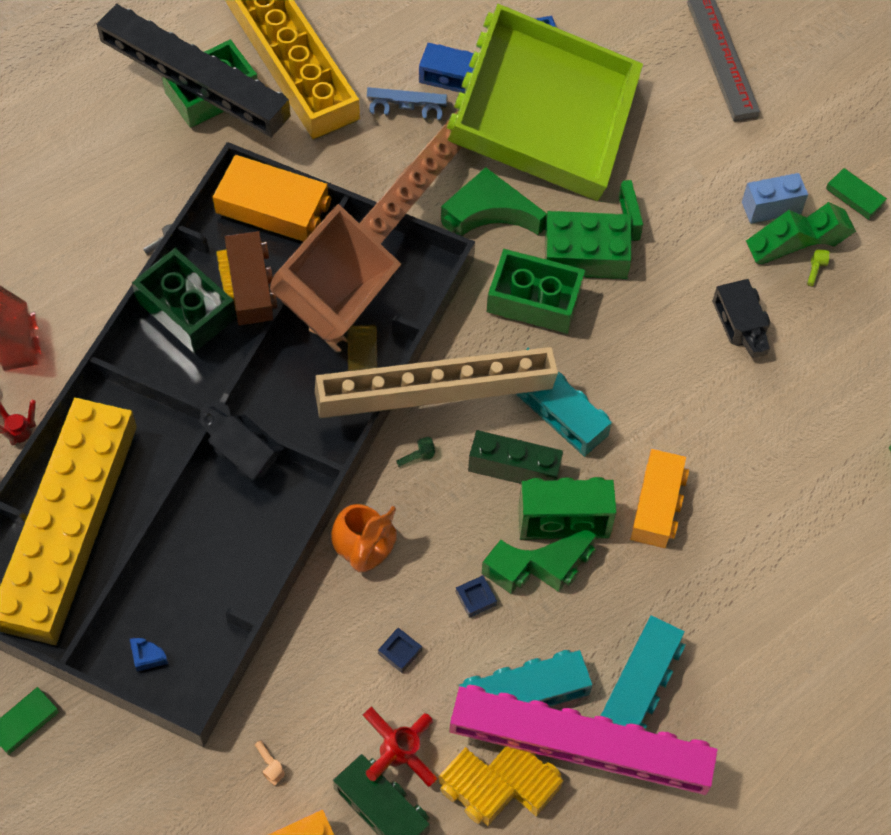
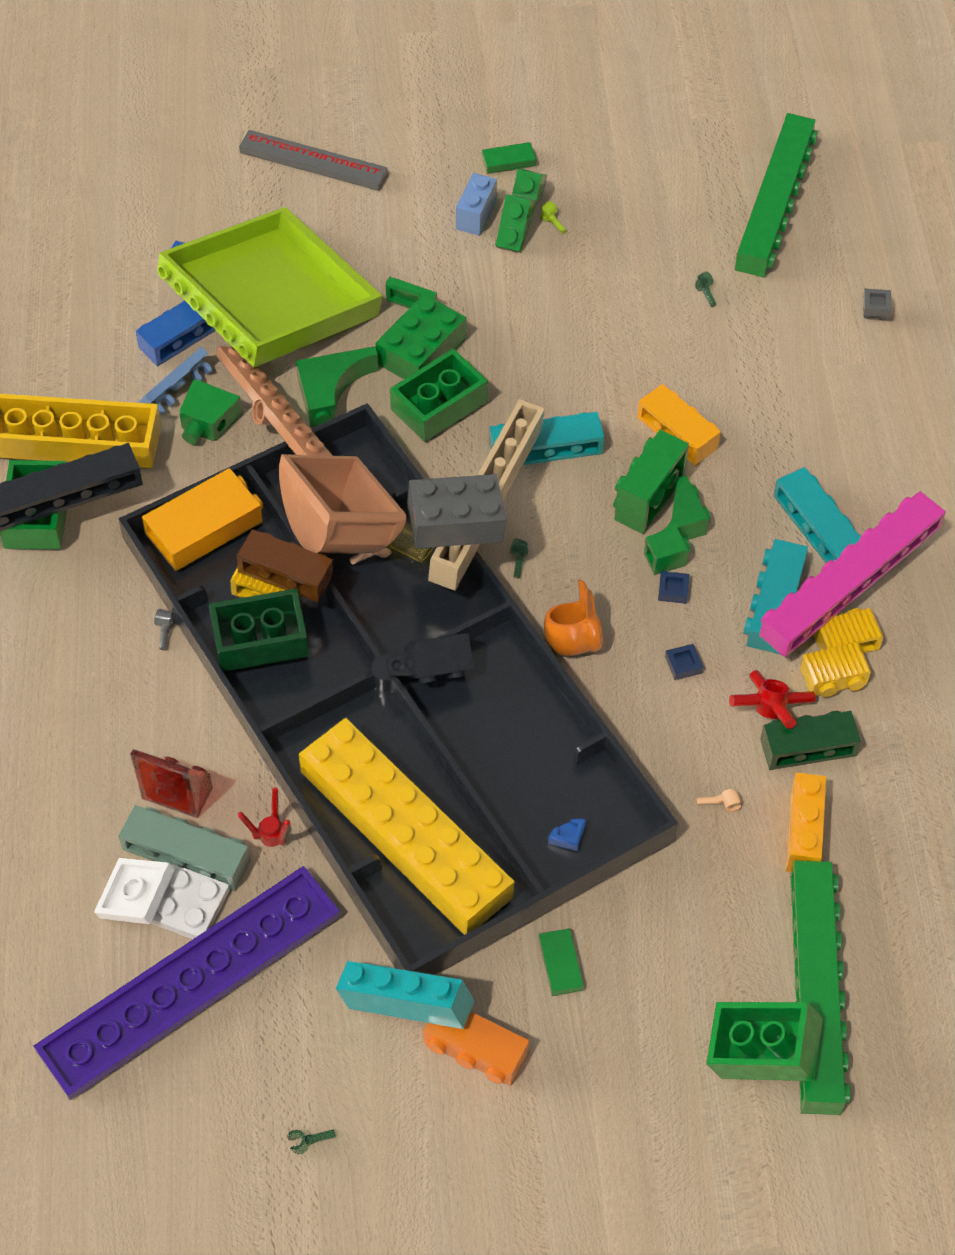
camera: 55 degrees left, 5 degrees down
(371, 363) = (456, 511): none -> dark grey brick
(390, 140) = (208, 412): none -> green torso
(513, 458) = (579, 494): dark green brick -> none
(743, 316) = (564, 285): black hinge -> none
(846, 428) = (703, 283): none -> clear green hand

